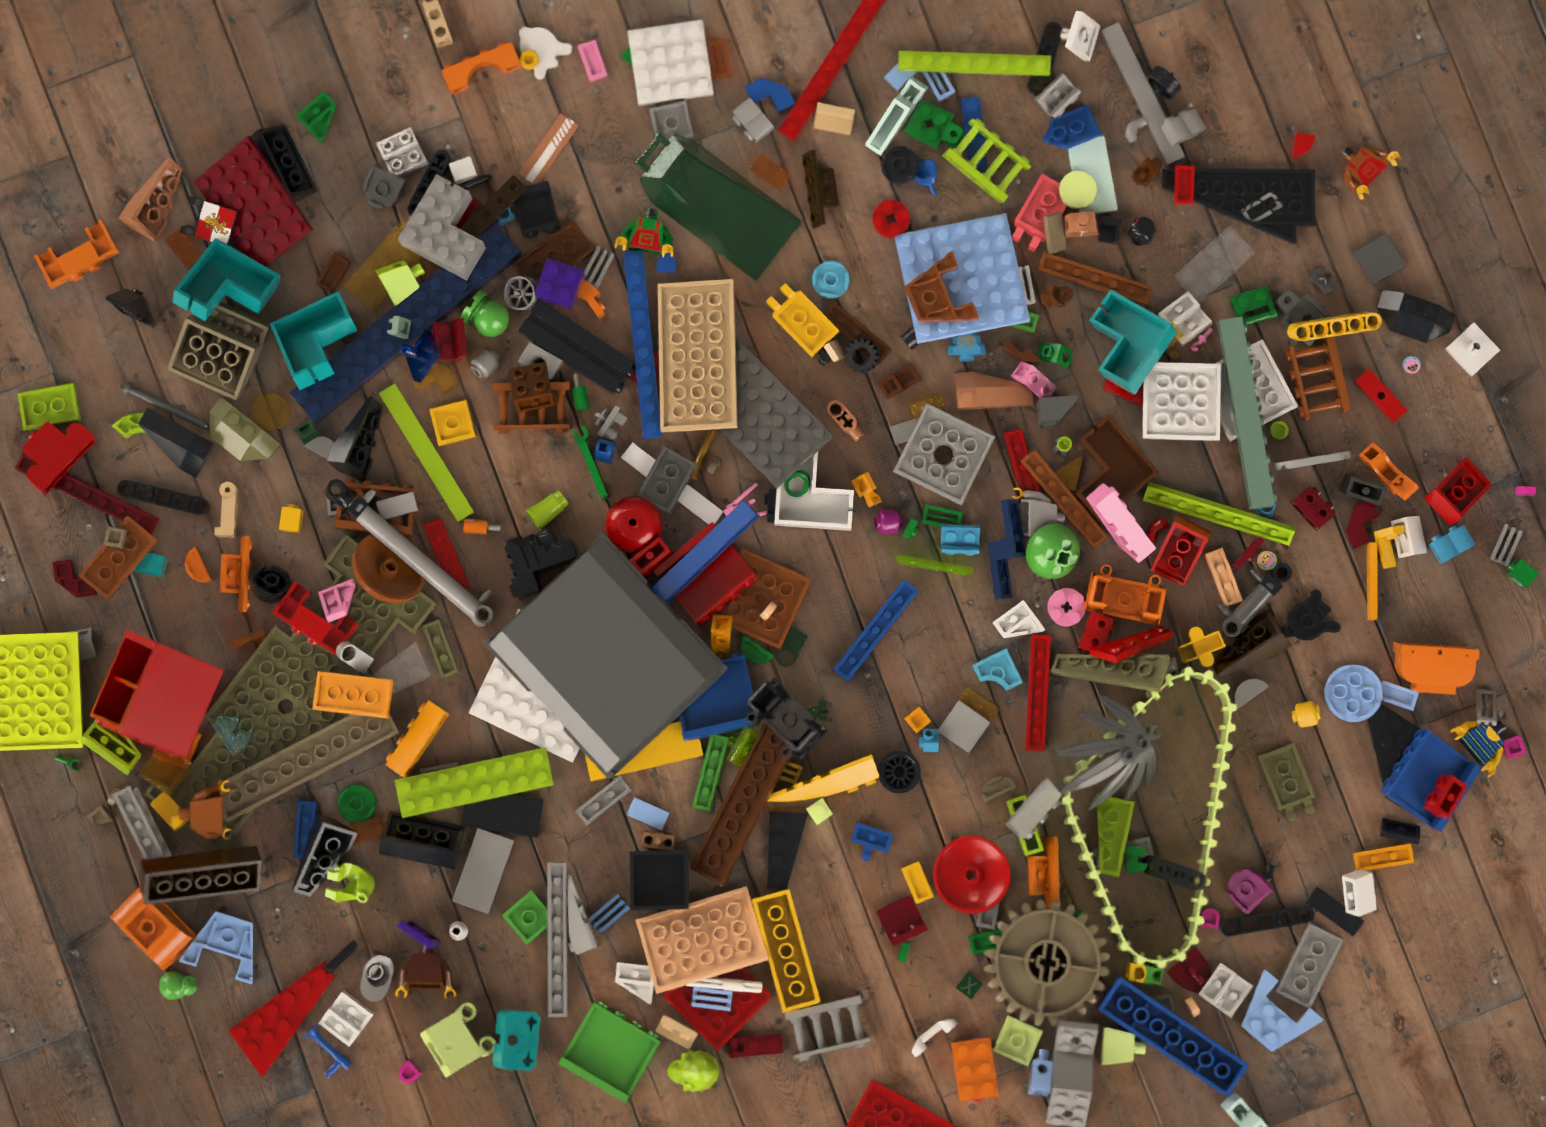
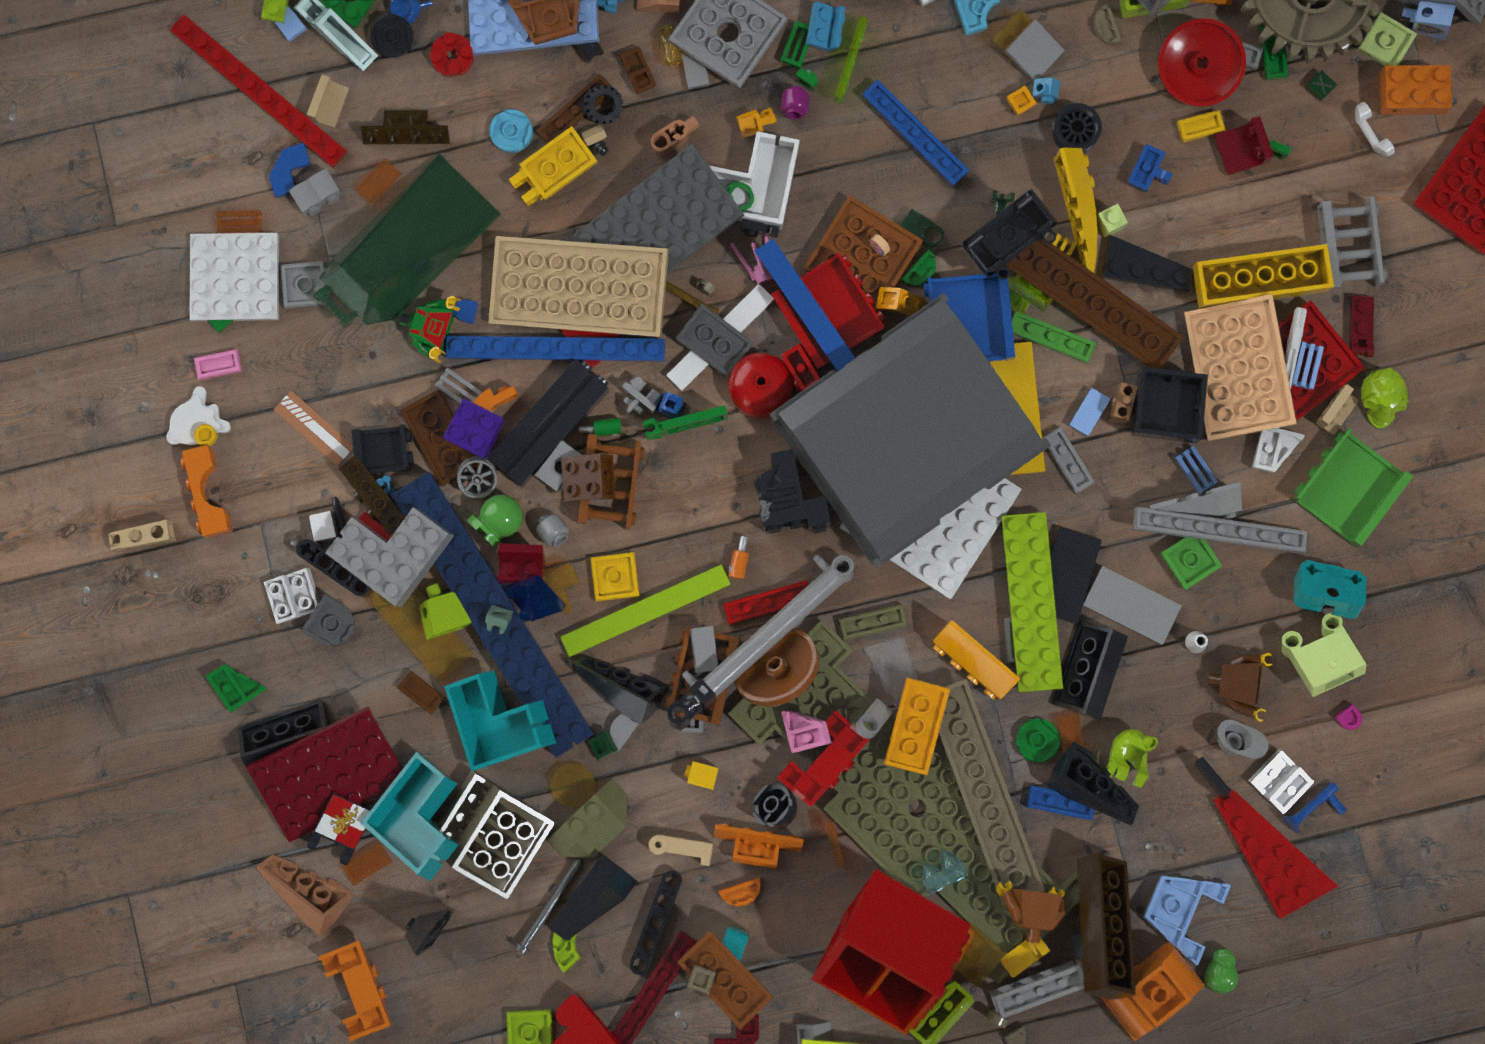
camera: 85 degrees left, 0 degrees up
(419, 934) = (1203, 681): dark purple tile -> none
(547, 509) = (731, 480): lime plant -> none

